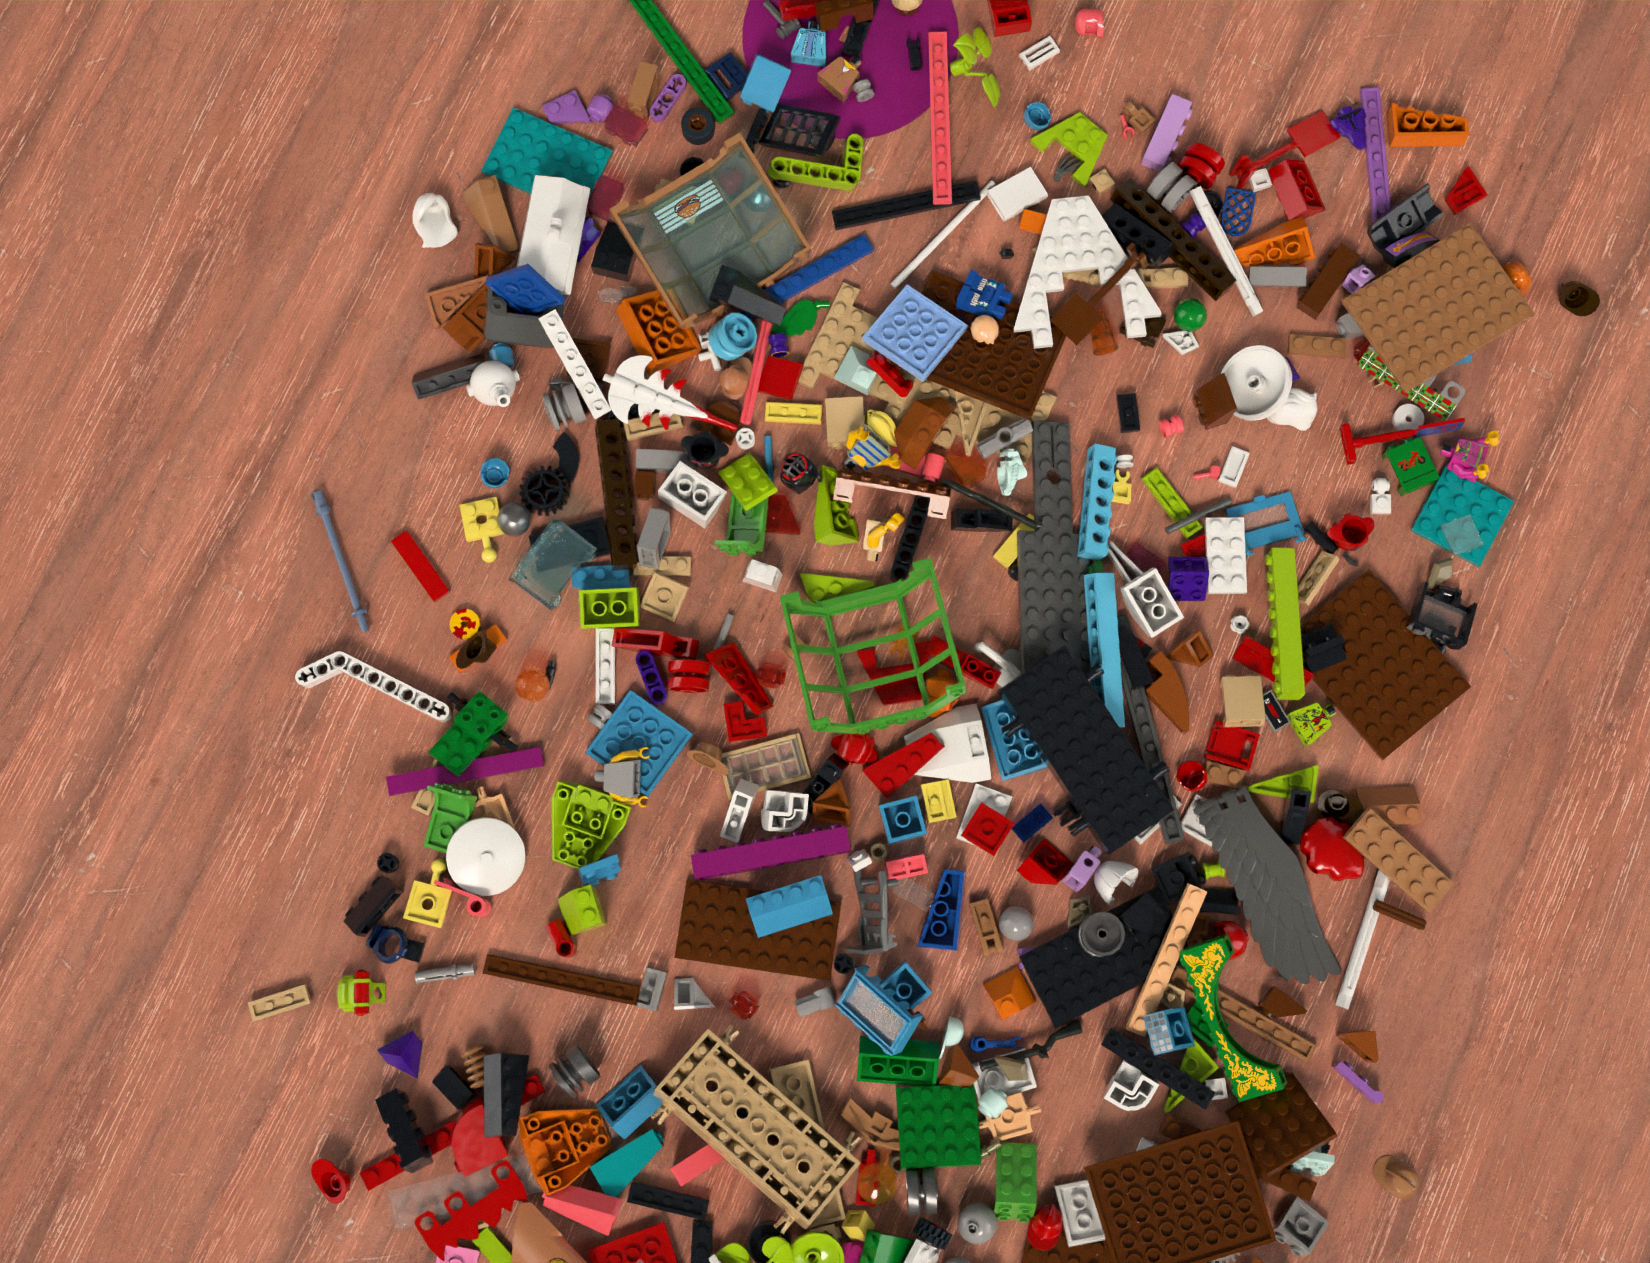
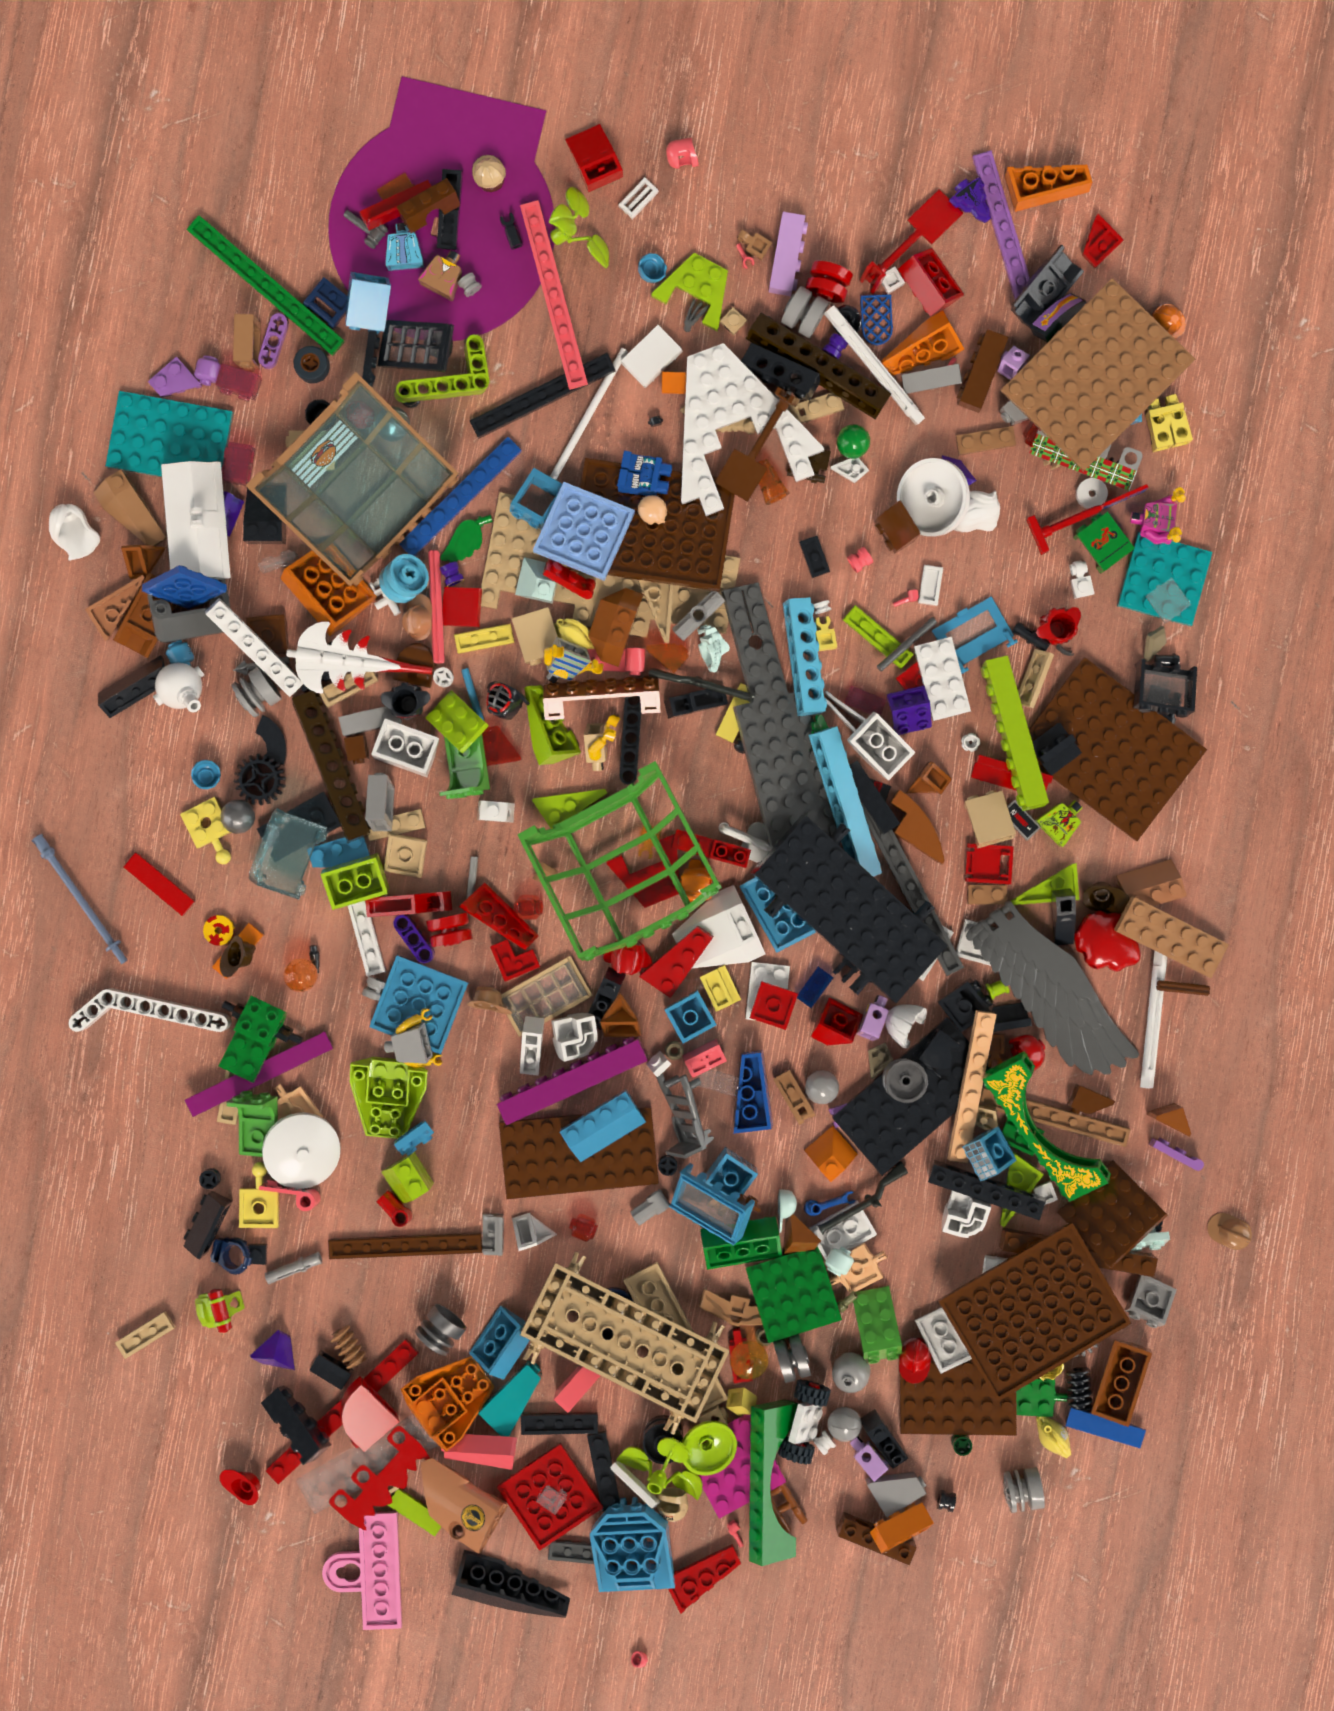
camera: 20 degrees left, 10 degrees up
(503, 1093) = (379, 1368): black wedge -> none
(742, 294) = (402, 532): black wedge -> none
(886, 282) = (545, 483): none -> dark azure window
(1013, 1069) = (850, 1225): dark tan piece -> none
(1192, 776) = (957, 904): red hair -> none
(1495, 372) = (1168, 424): none -> light yellow hips
(1578, 298) = (1235, 327): dark brown piece -> none

